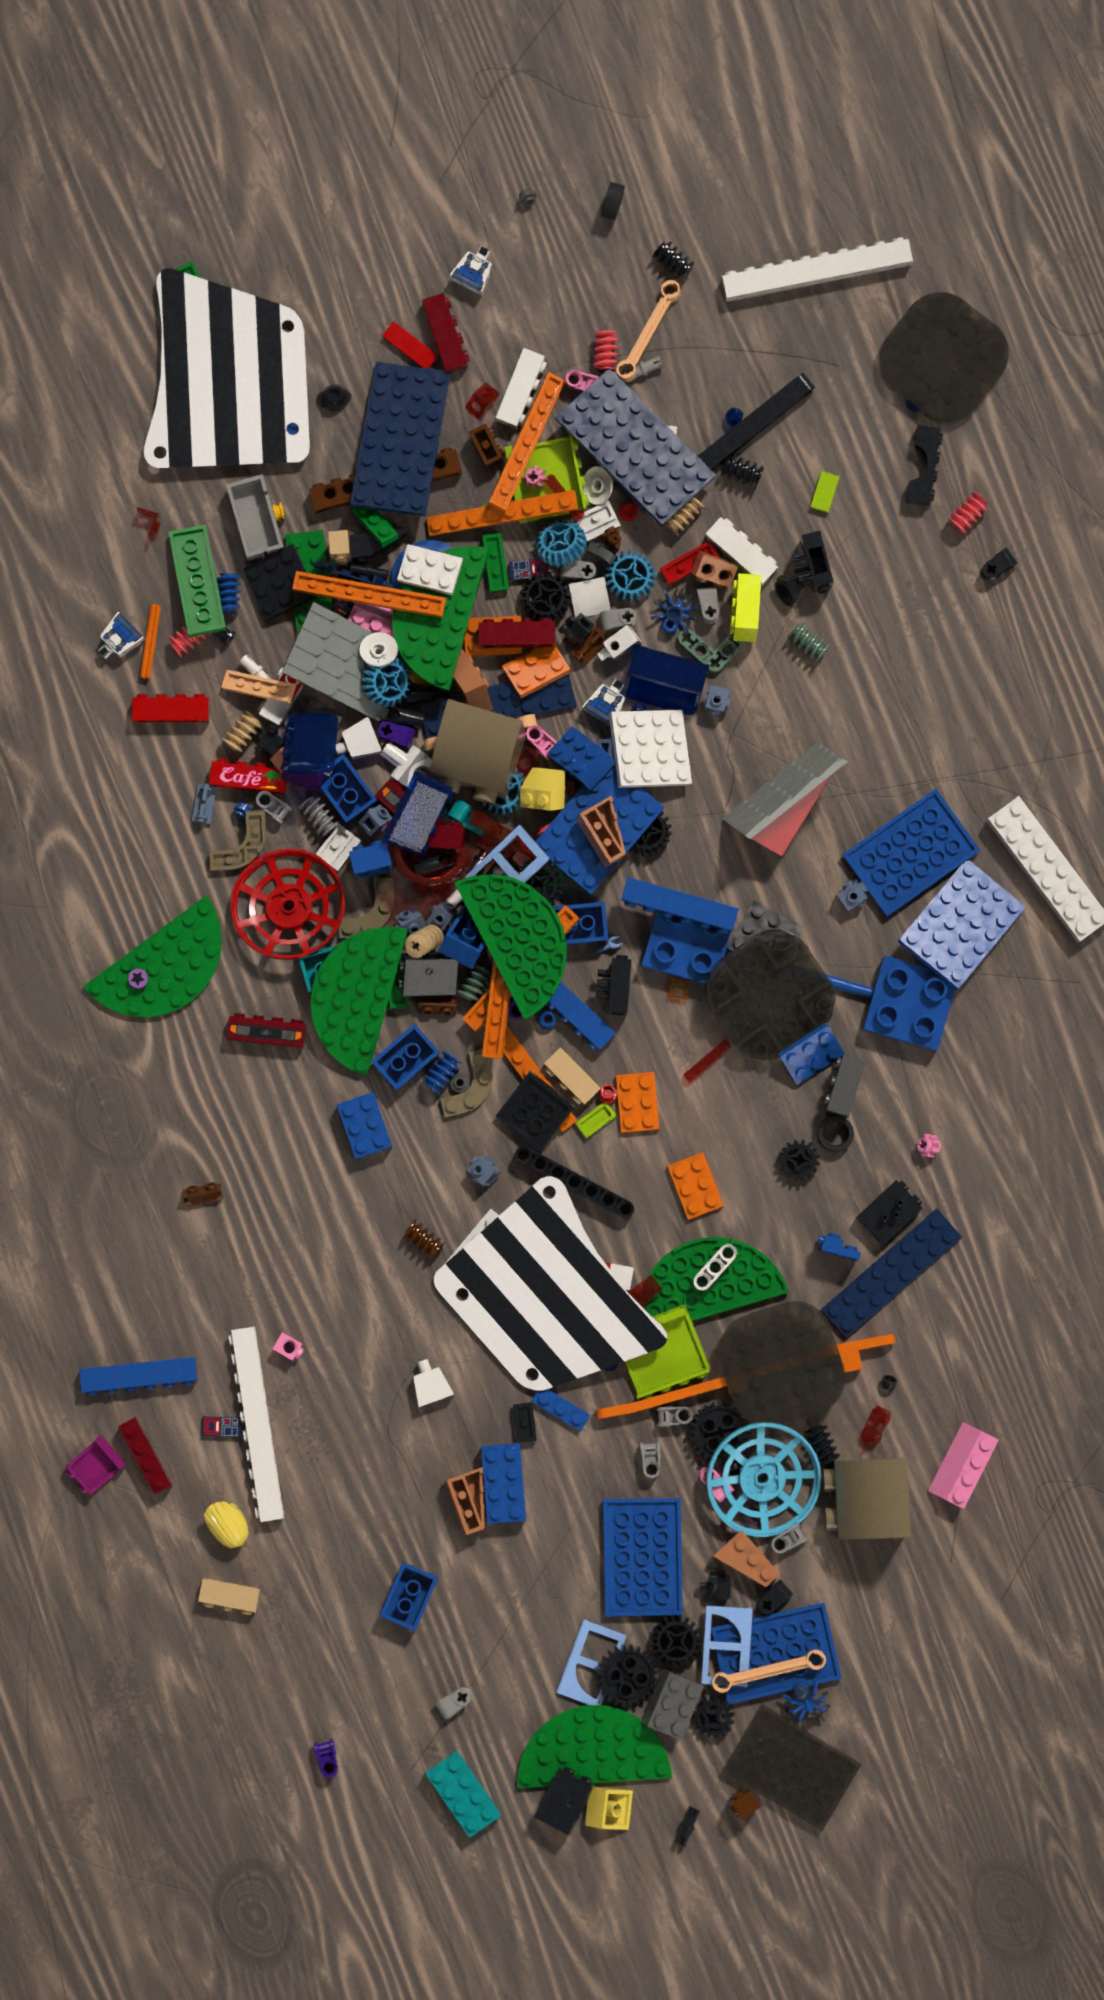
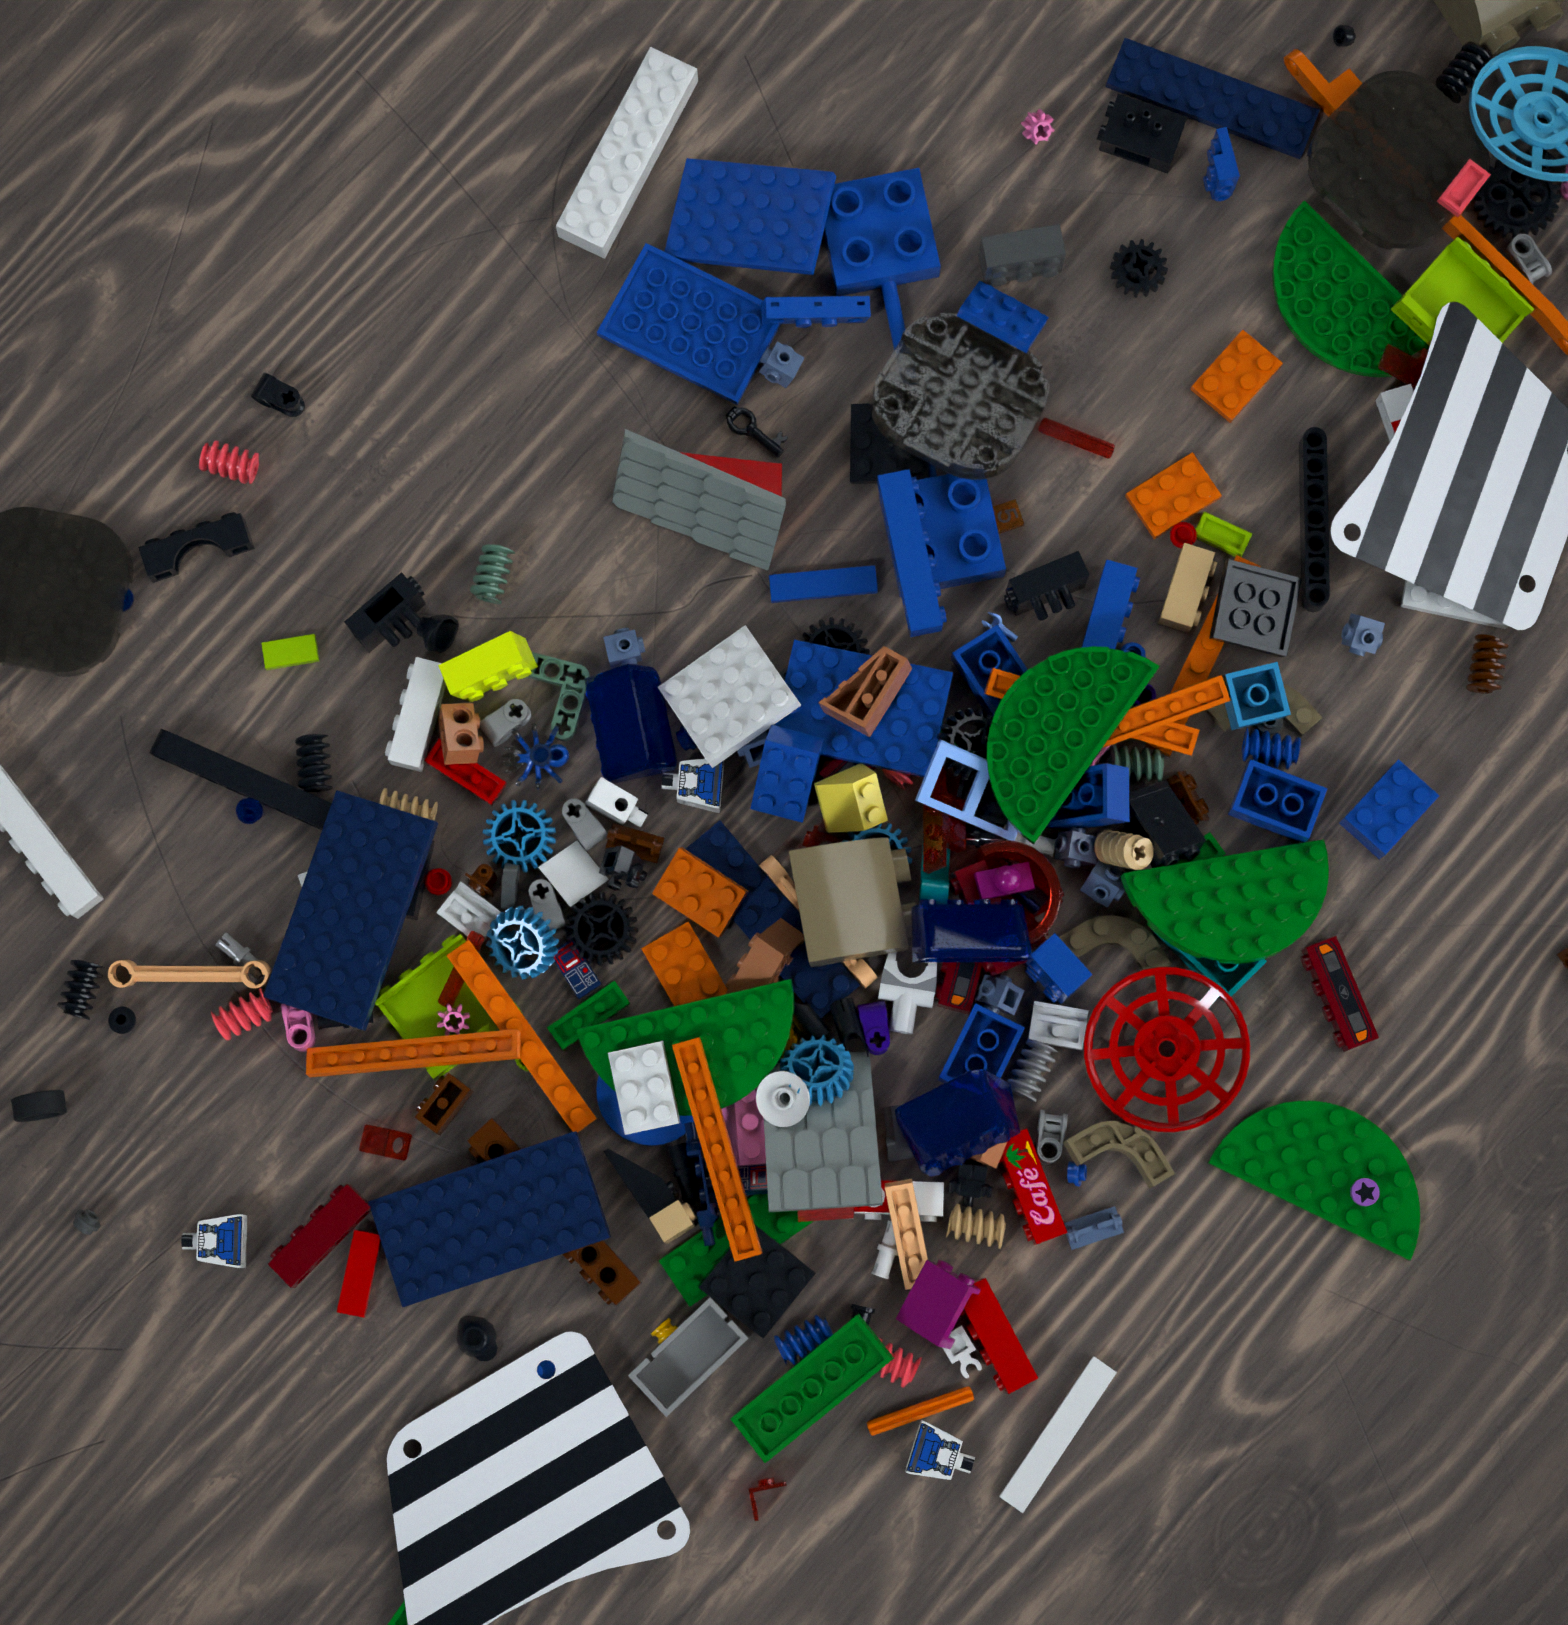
camera: 115 degrees left, 5 degrees down
(93, 717) = (1057, 1434): none -> white tile
(176, 683) = (961, 1351): none -> white plate
(208, 682) = (936, 1302): none -> magenta panel
(359, 741) = (907, 1068): white torso -> none
(376, 525) = (620, 1190): green plate -> none
(441, 853) = (1004, 881): none -> magenta tile
(478, 1076) = (1255, 696): none -> dark azure brick
(517, 634) = (669, 937): dark red brick -> none
(520, 388) = (345, 1100): white brick -> none
(542, 742) = (788, 835): bright pink piece -> none
(598, 485) = (417, 945): white dish -> none
(642, 282) = (128, 1025): none -> black plate
(695, 848) = (823, 584): none -> blue tile
(723, 1262) = (1339, 293): white beam -> none
(739, 1392) = (1463, 187): none -> coral tile
(819, 856) = (751, 429): none -> black piece
(835, 1119) = (1096, 228): black tyre -> none
(877, 925) = (811, 310): none -> blue piece
(880, 1418) = (1393, 26): clear red hinge -> none

